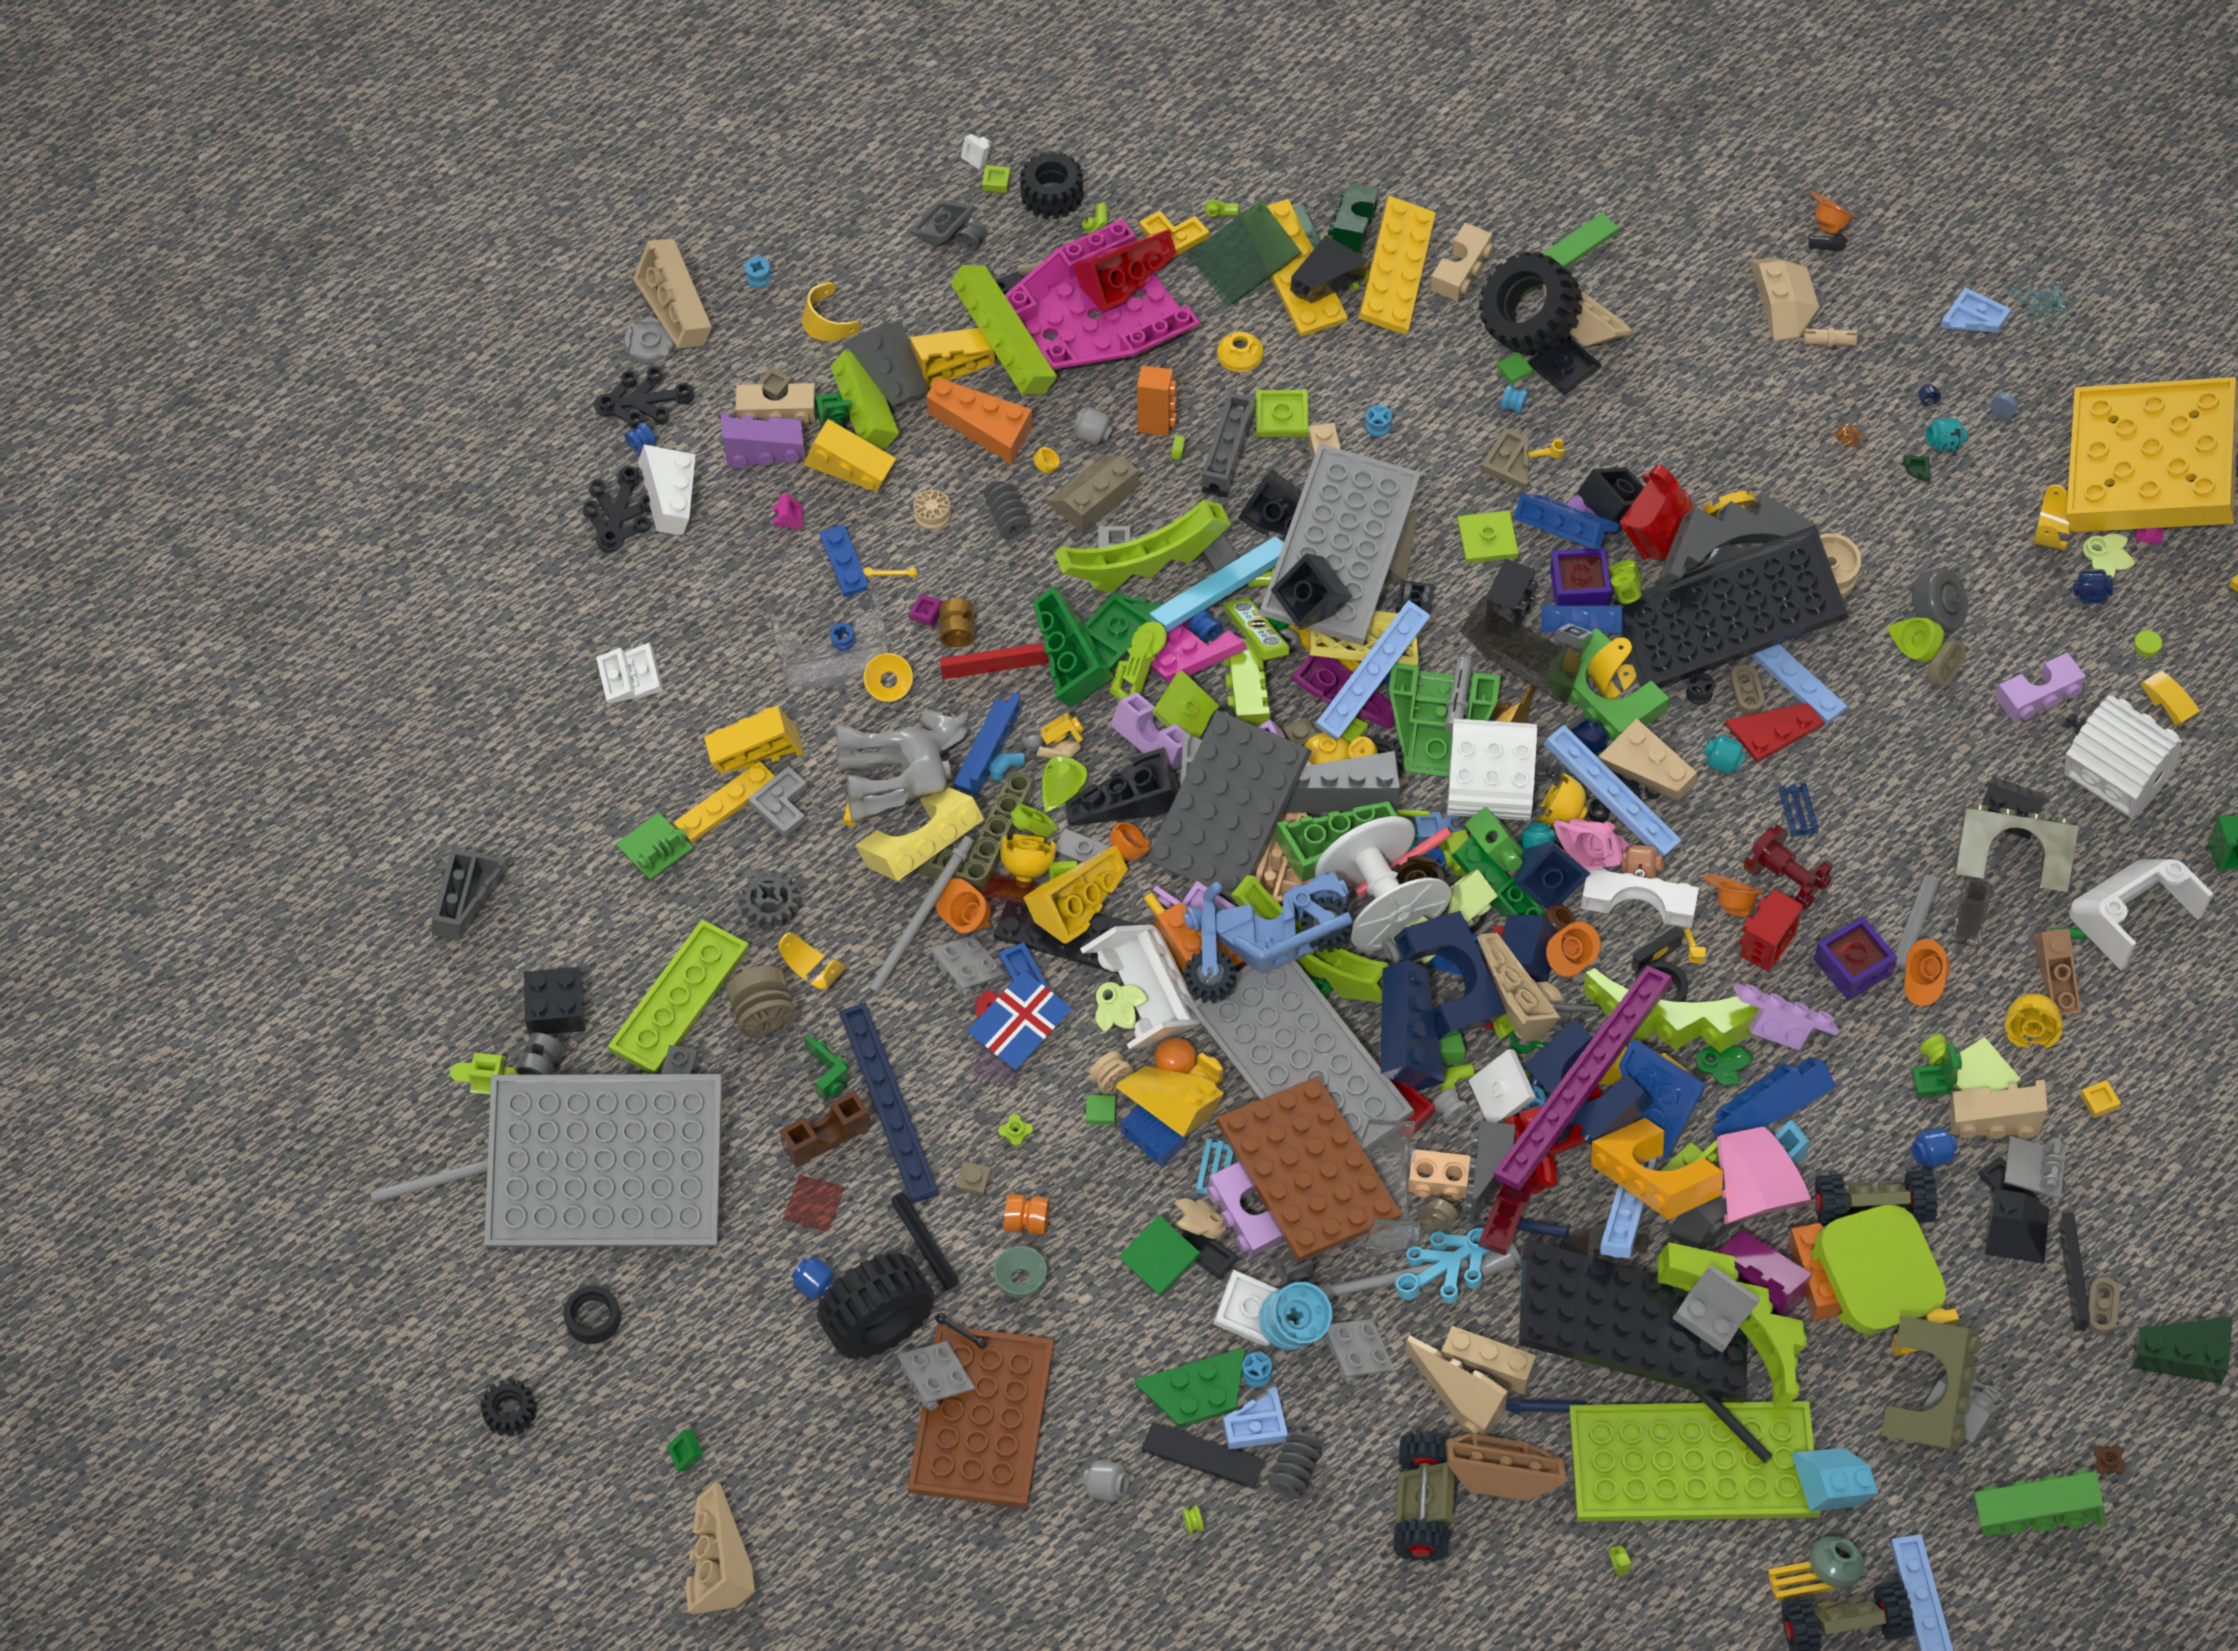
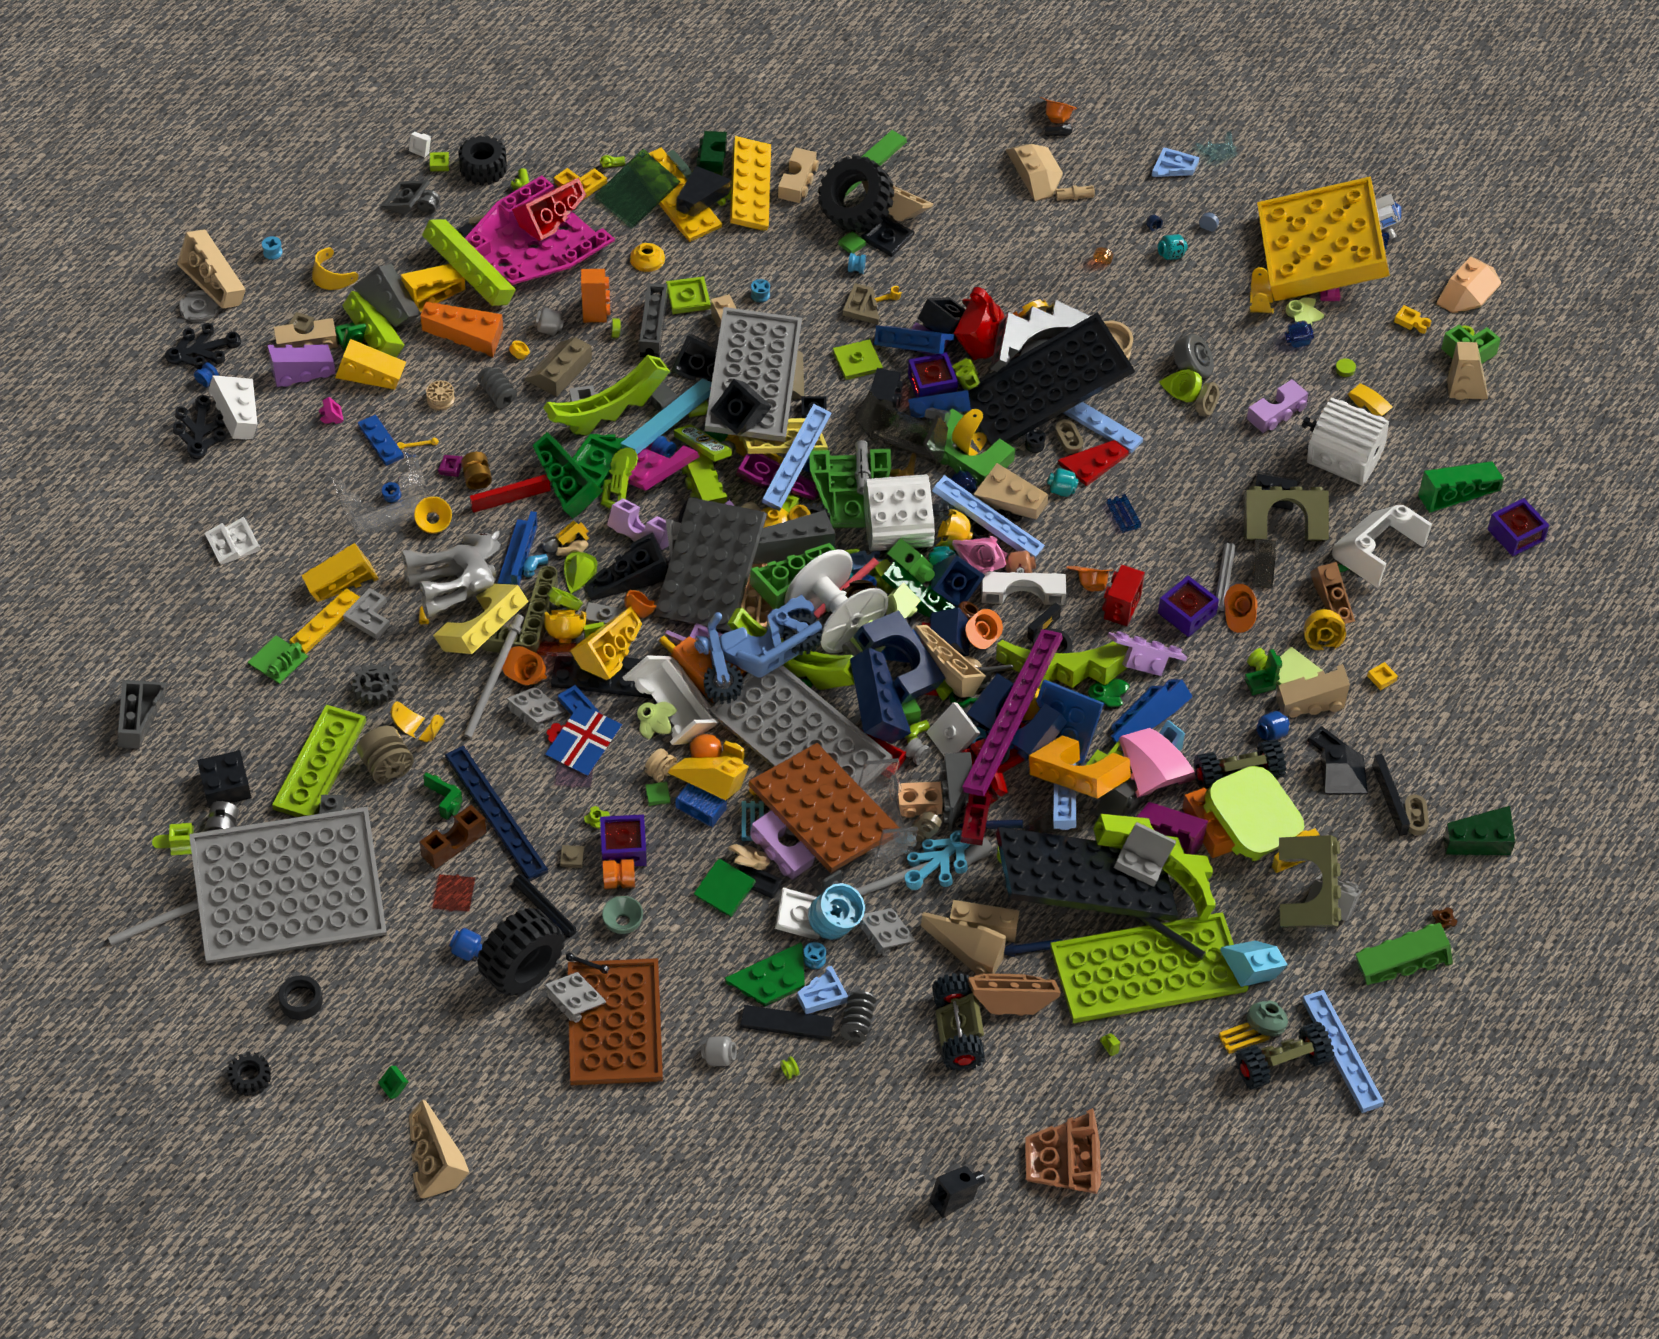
camera: 15 degrees left, 5 degrees down
(1041, 1168) = (623, 838): none -> piece
(1185, 705) = (660, 502): lime plate -> none
(1694, 951) = (1070, 619): yellow hand -> none
(1779, 860) = (1120, 547): dark red piece -> none
(1918, 466) = (1156, 271): dark green tile -> none
(2036, 1166) = (1347, 727): light grey hinge -> none

